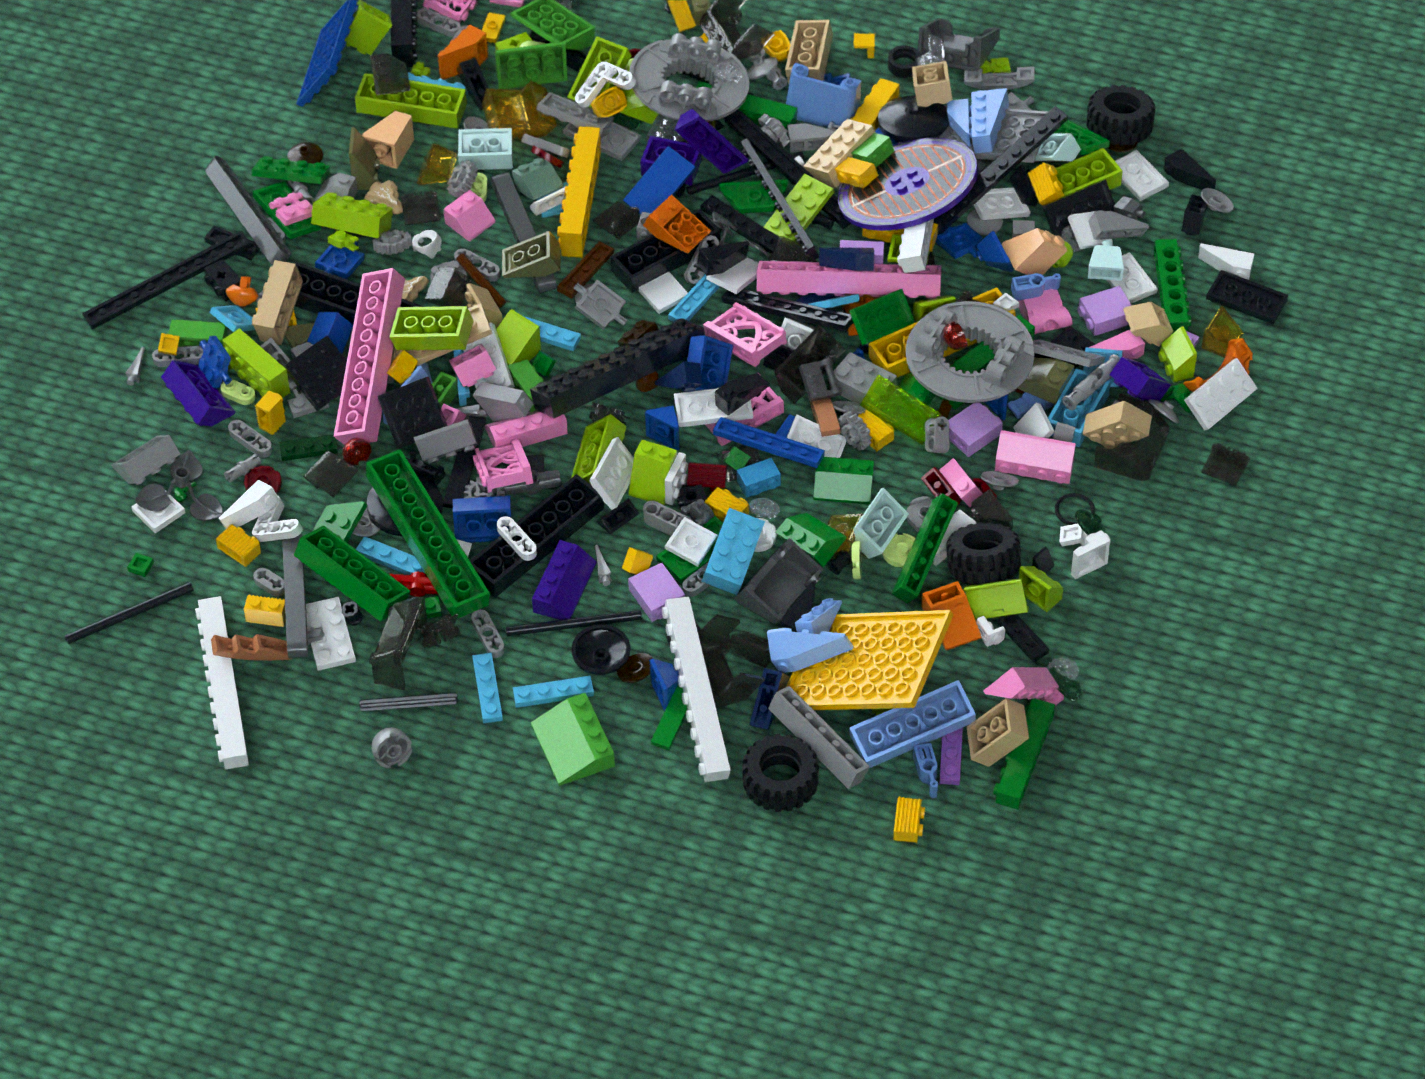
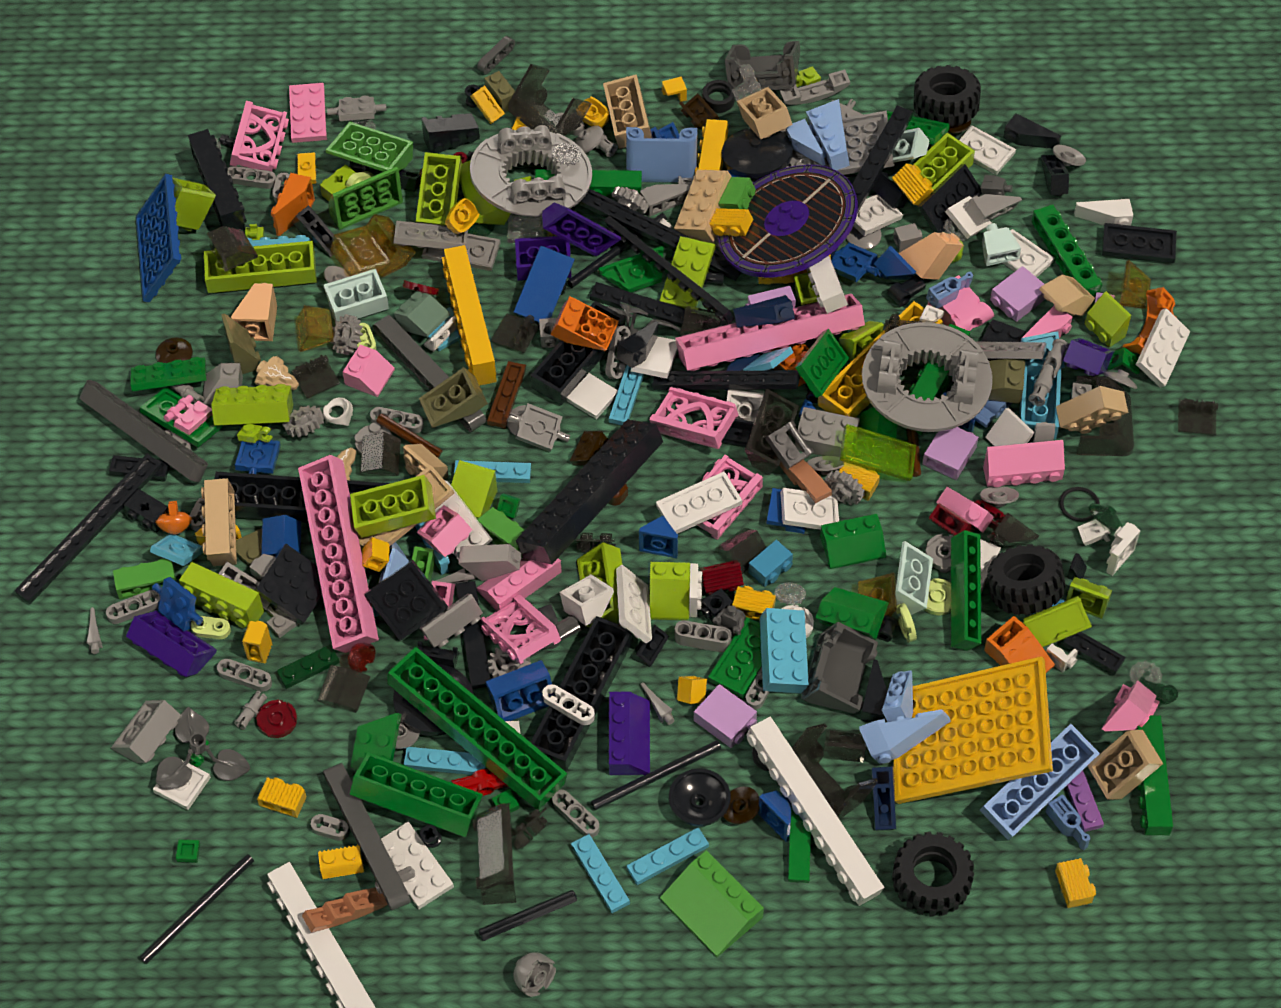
camera: 20 degrees left, 5 degrees up
(168, 344) = (120, 598): yellow plate -> none
(250, 505) = (279, 749): white slope -> none
(266, 529) = (307, 766): white beam -> none
(545, 145) = (412, 276): light grey beam -> none
(575, 458) = (586, 599): none -> white slope
(585, 98) = (450, 190): white beam -> none
(634, 28) = (450, 132): none -> black wedge
(684, 376) = (660, 482): dark blue slope -> none
(691, 541) = (738, 653): white tile -> none
(713, 359) = (673, 462): blue slope -> none
(736, 458) = (744, 551): green plate -> none
(738, 392) = (722, 482): black slope -> none
(768, 442) = (770, 525): blue plate -> none
(820, 736) = (950, 820): light grey brick -> none
(877, 68) = (698, 111): none -> dark brown bracket
(937, 437) = (922, 470): light grey piece -> none
(954, 336) = (910, 367): clear red hair -> none
(993, 279) = (903, 292): none -> black piece

